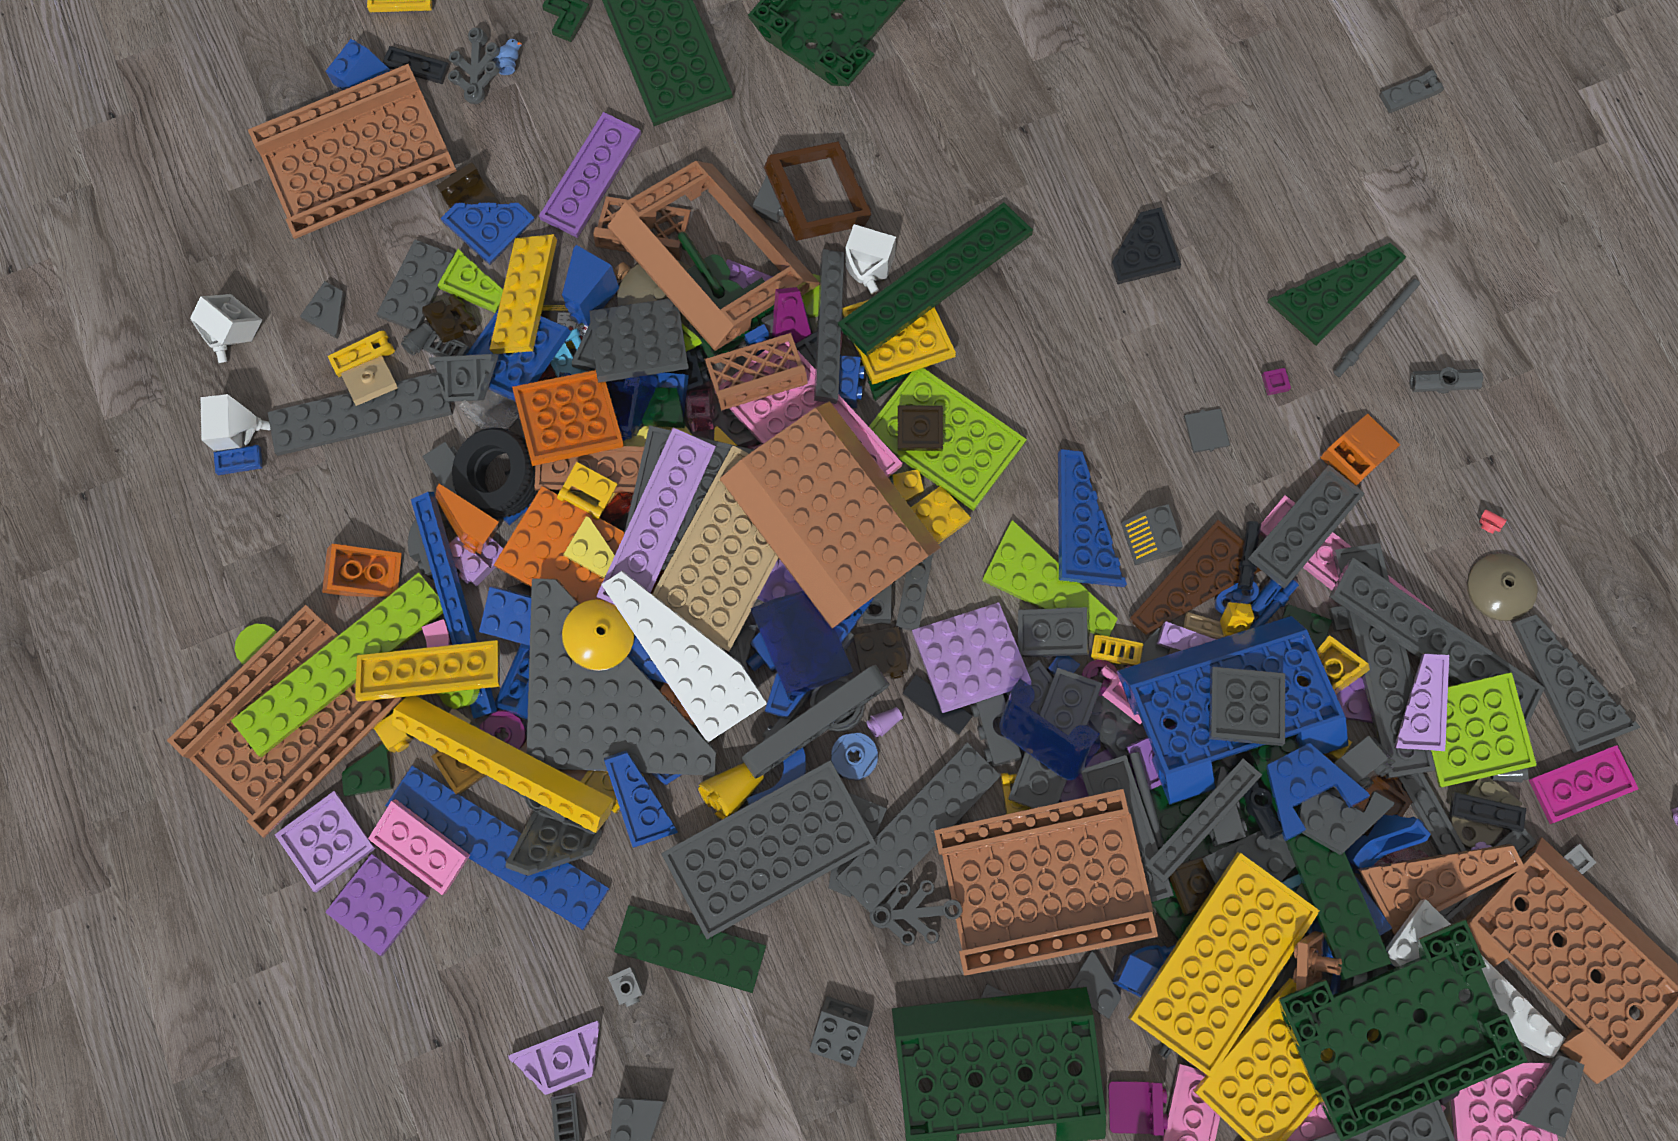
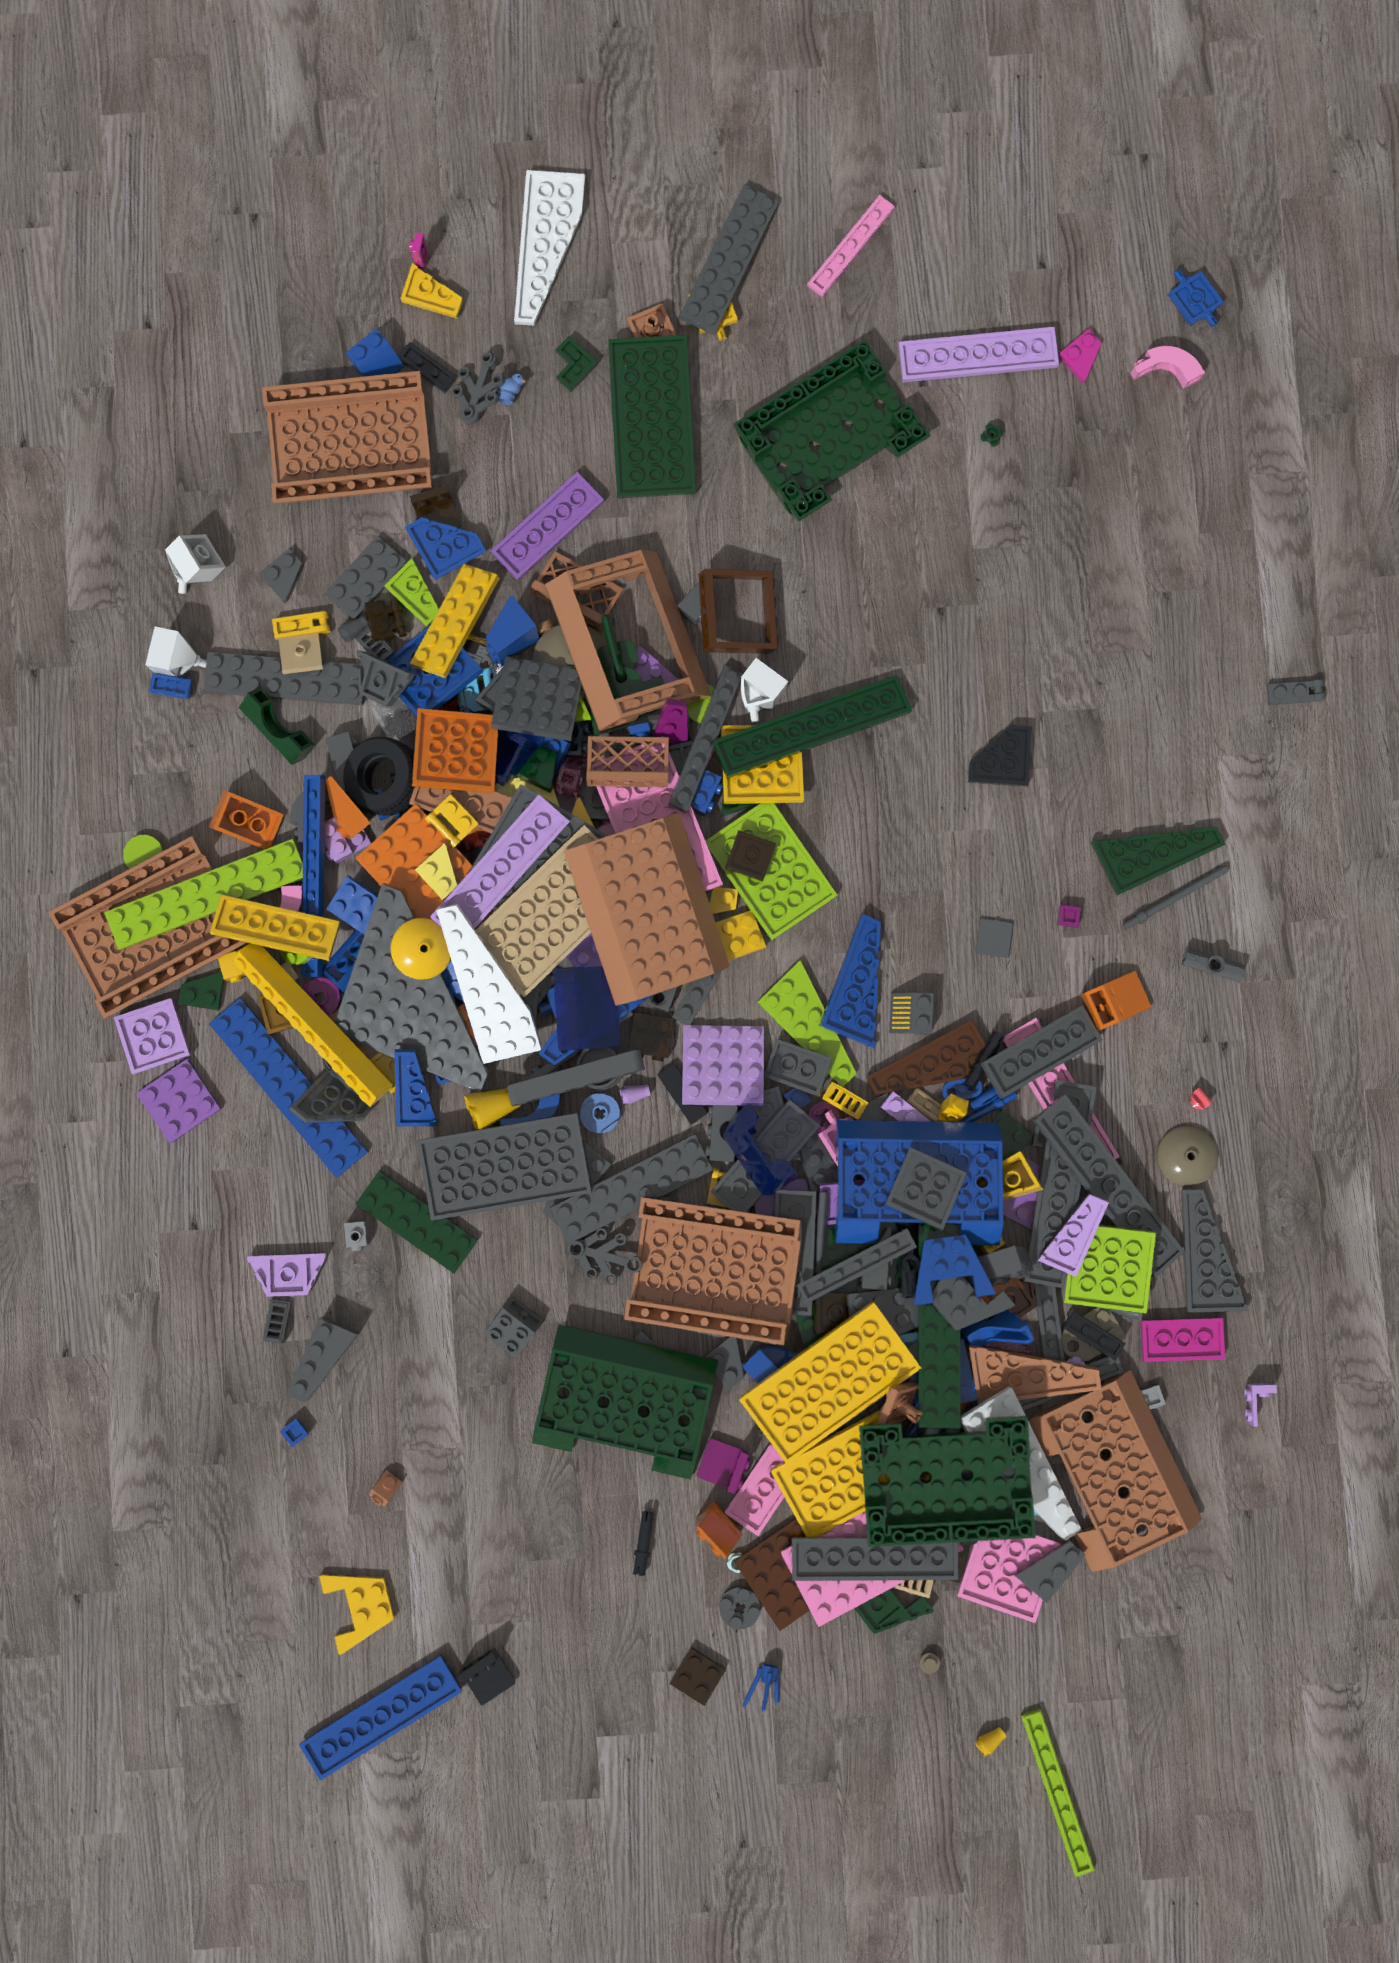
camera: 15 degrees right, 10 degrees up
(342, 451) = (260, 711): none -> dark green arch
(419, 847) = (225, 1067): bright pink plate -> none

